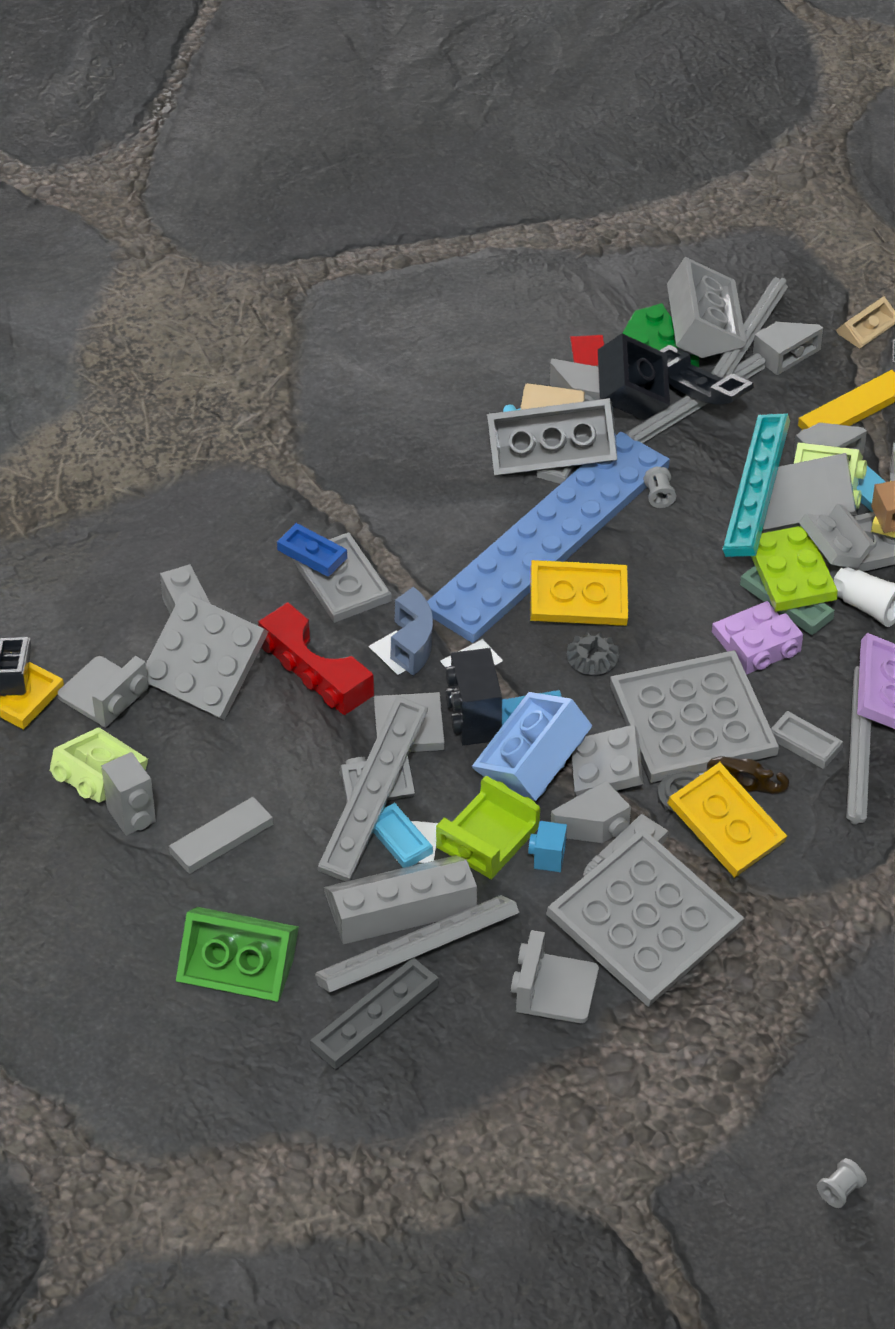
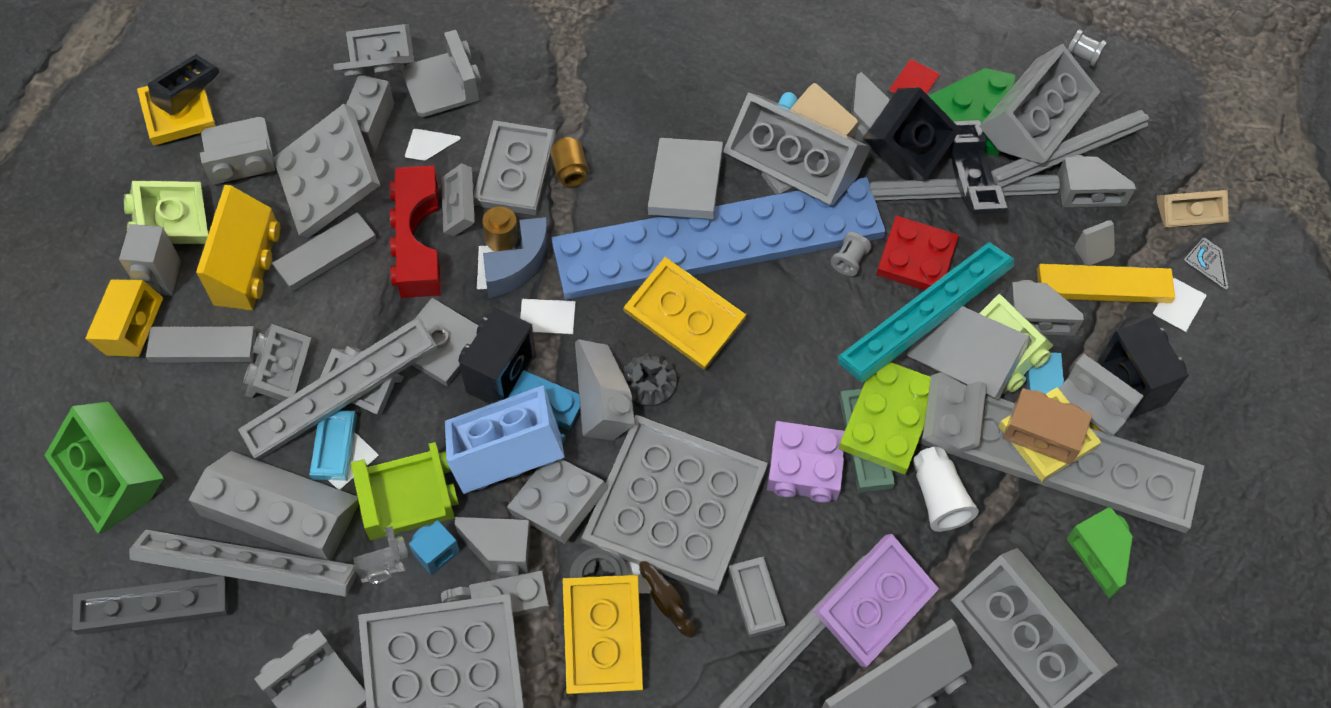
camera: 35 degrees right, 15 degrees up
(144, 848) = (124, 318): none -> yellow brick
(150, 548) = (377, 50): none -> light grey bracket
(191, 751) = (238, 250): none -> yellow slope
(223, 544) = (443, 80): none -> light grey bracket
(251, 718) = (324, 252): none -> light grey tile
(252, 602) = (426, 143): none -> white sticker
(298, 808) = (277, 364): none -> light grey bracket
(312, 549) = (502, 128): blue plate -> none
(326, 620) = (457, 200): none -> light grey plate
(382, 618) = (500, 229): none -> pearl gold brick
(385, 545) = (569, 162): none -> pearl gold brick
(487, 505) = (685, 178): none -> light grey tile
(522, 874) = (379, 565): none -> clear bracket
(579, 678) = (602, 392): none -> light grey slope
(698, 254) = (1086, 47): none -> light grey bush
(705, 462) = (916, 253): none -> red plate
(825, 382) = (1096, 243): none -> light grey slope

